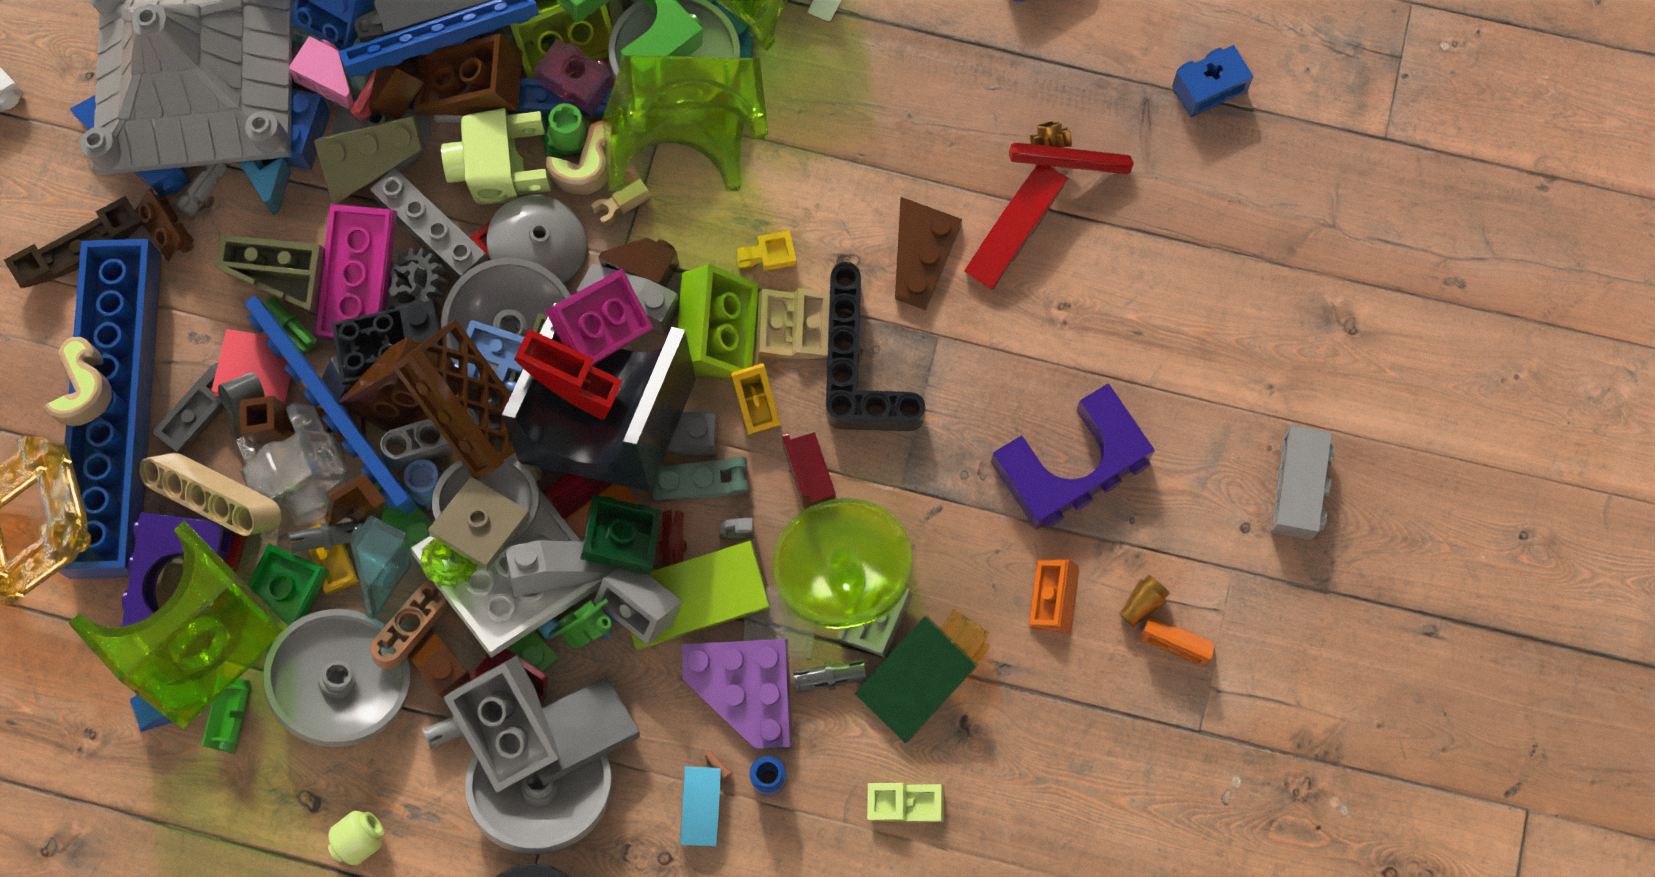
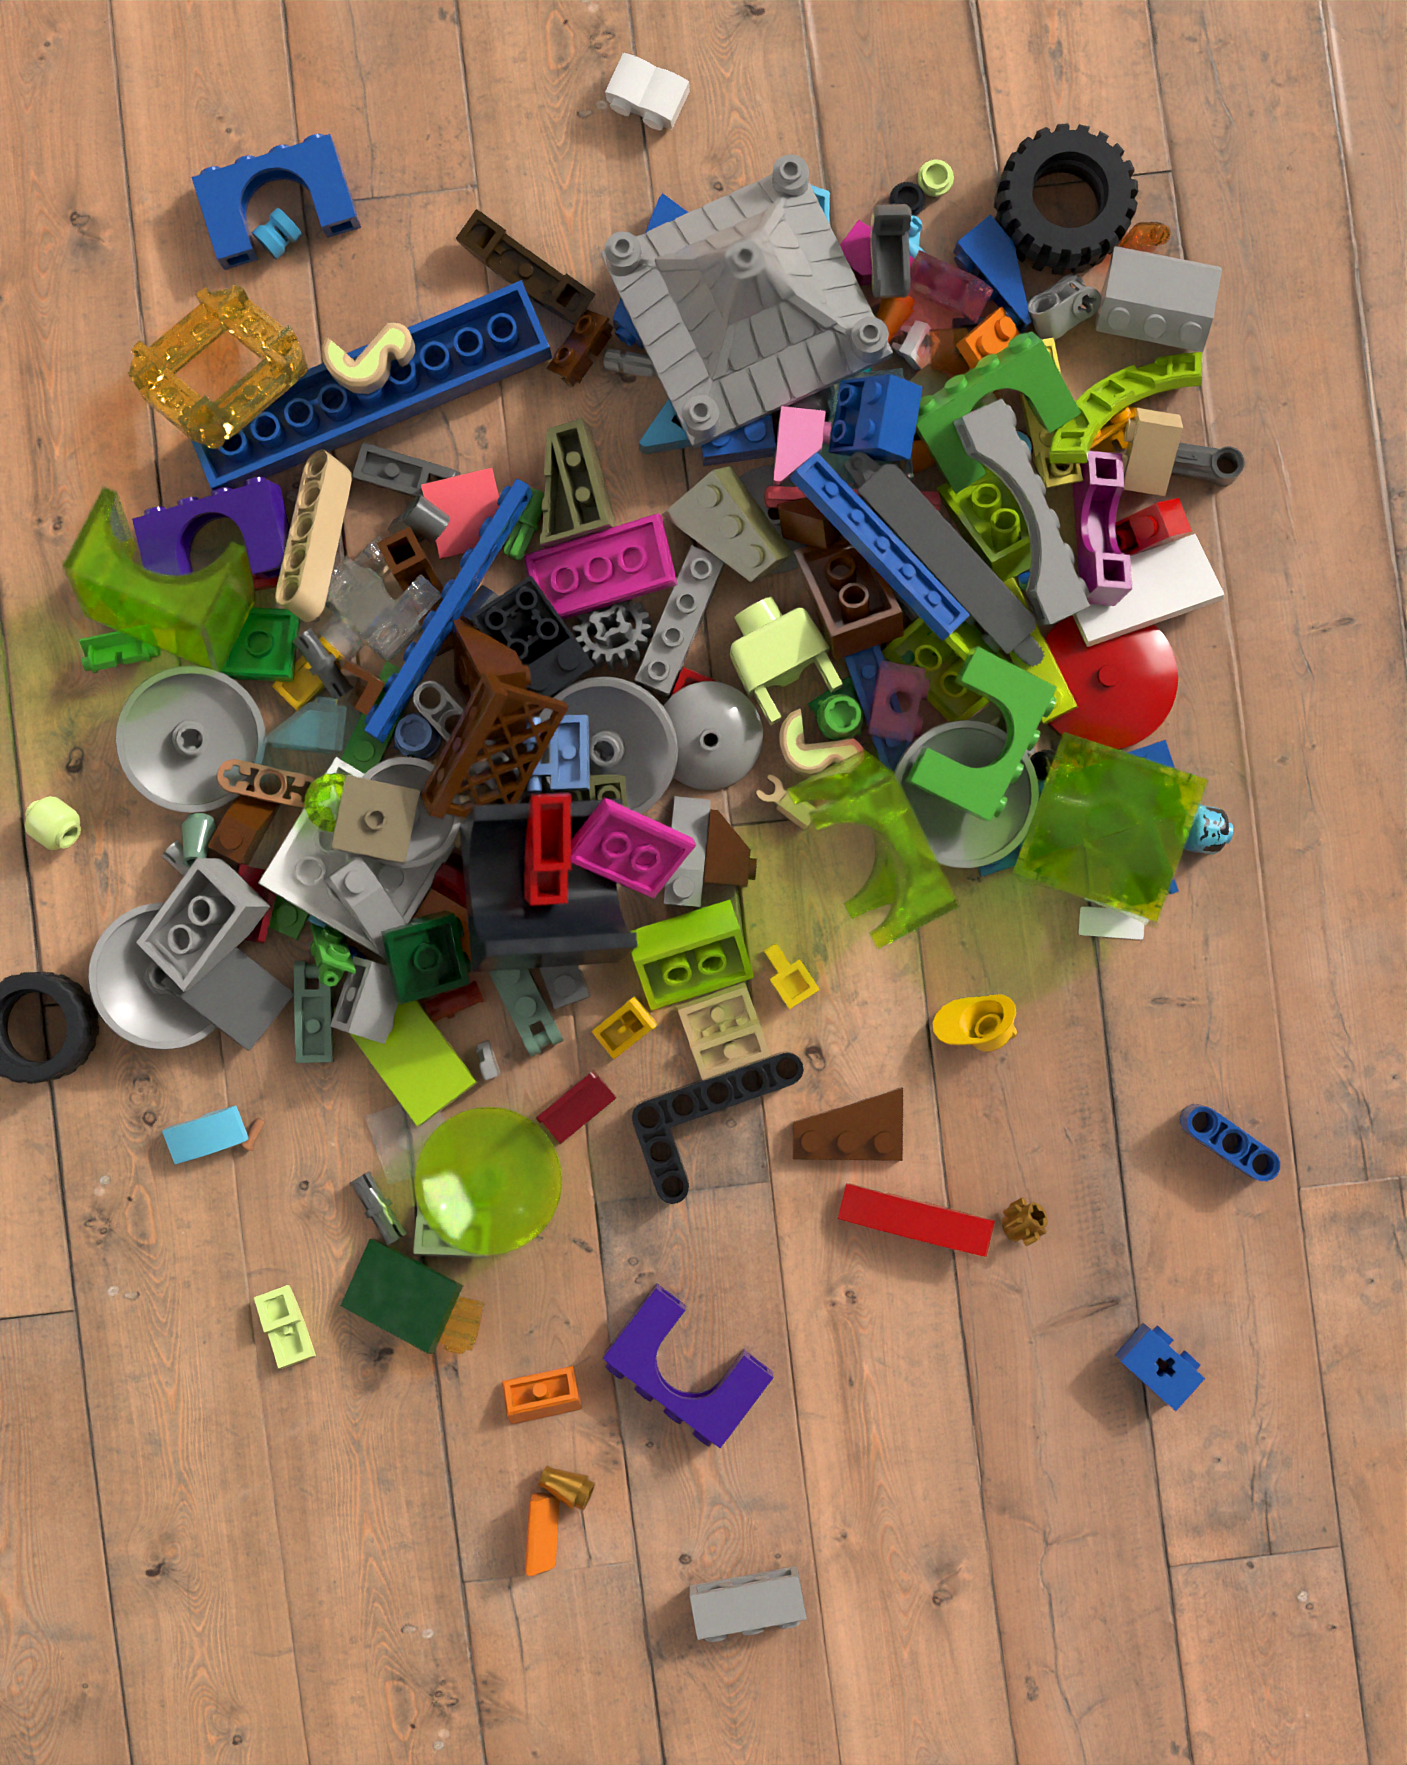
camera: 65 degrees right, 15 degrees up
(427, 707) = (196, 835): none -> sand green cone
(632, 666) = (312, 1017): none -> sand green plate
(745, 686) = (335, 1131): medium lavender plate -> none
(762, 766) = (244, 1191): blue brick -> none
(870, 114) = (977, 1021): none -> yellow piece
(1070, 158) = (1008, 1251): red axle -> none

